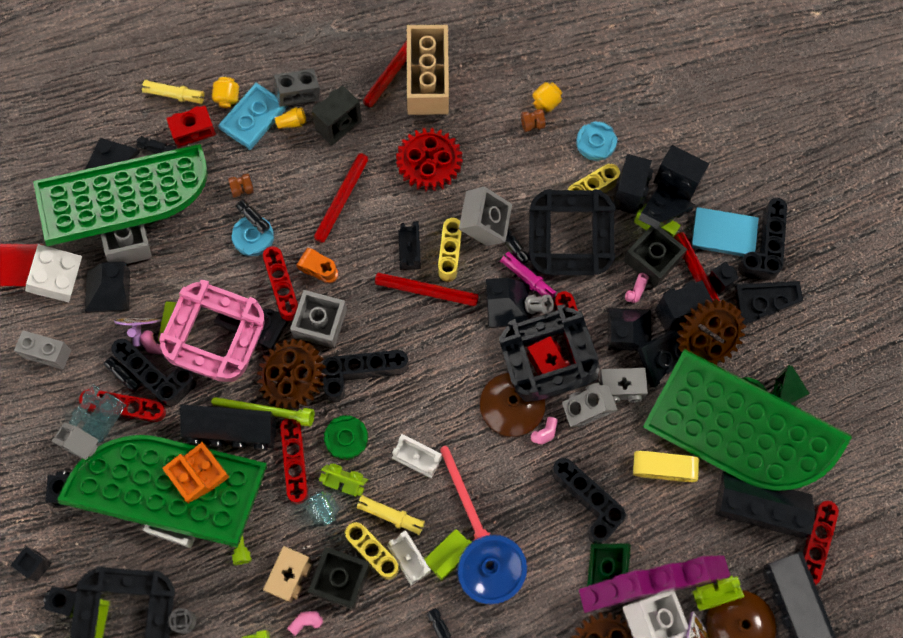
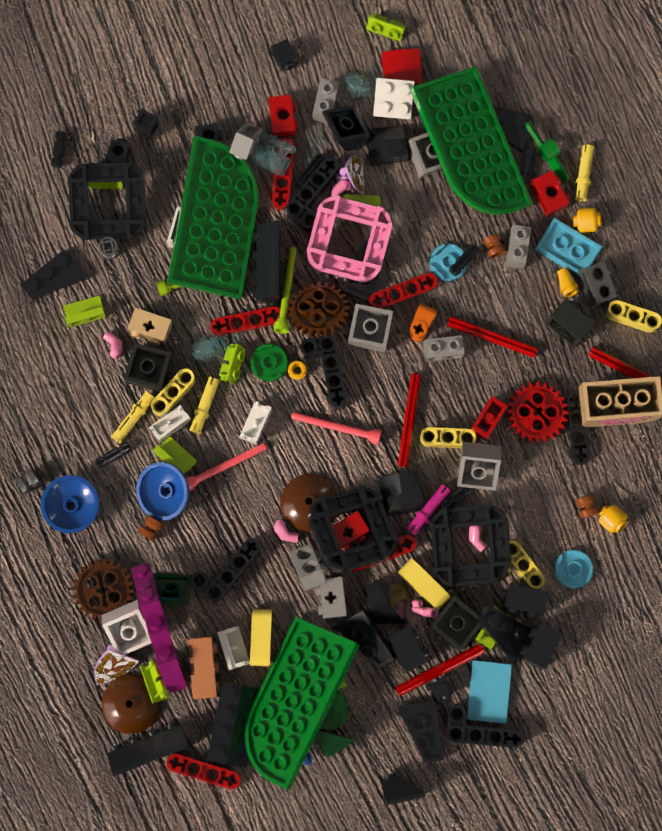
camera: 85 degrees right, 10 degrees up
(30, 314) = (357, 85): none -> clear light blue head
(38, 400) = (280, 105): none -> red brick
(79, 325) = (347, 127): none -> black slope
(144, 123) = (549, 151): none -> green piece
(195, 472) = (226, 241): orange slope -> none
(245, 160) = (518, 246): none -> light grey brick
(335, 51) = (643, 316): none -> light yellow beam
(350, 245) = (443, 348): none -> light grey brick
(358, 399) = (297, 364): none -> yellow plate
(397, 602) = (131, 419): none -> light yellow pin
(409, 246) = (448, 402): black hinge -> none
(432, 204) = (489, 418): none -> red brick
(441, 327) = (372, 435): none -> coral piece
(448, 121) = (576, 428): none -> black beam
(529, 586) = (153, 525): none -> dark orange wheel
(539, 304) = (400, 520): light grey bush -> none
(559, 232) = (474, 537): none -> bright pink arm
(610, 286) = (424, 584): none -> light yellow beam
(678, 499) = (233, 648): none -> white hinge
(701, 533) = (204, 668): none -> nougat wedge
(724, 322) = (381, 673): reddish brown gear -> none
(837, 327) = (399, 790): none -> black slope

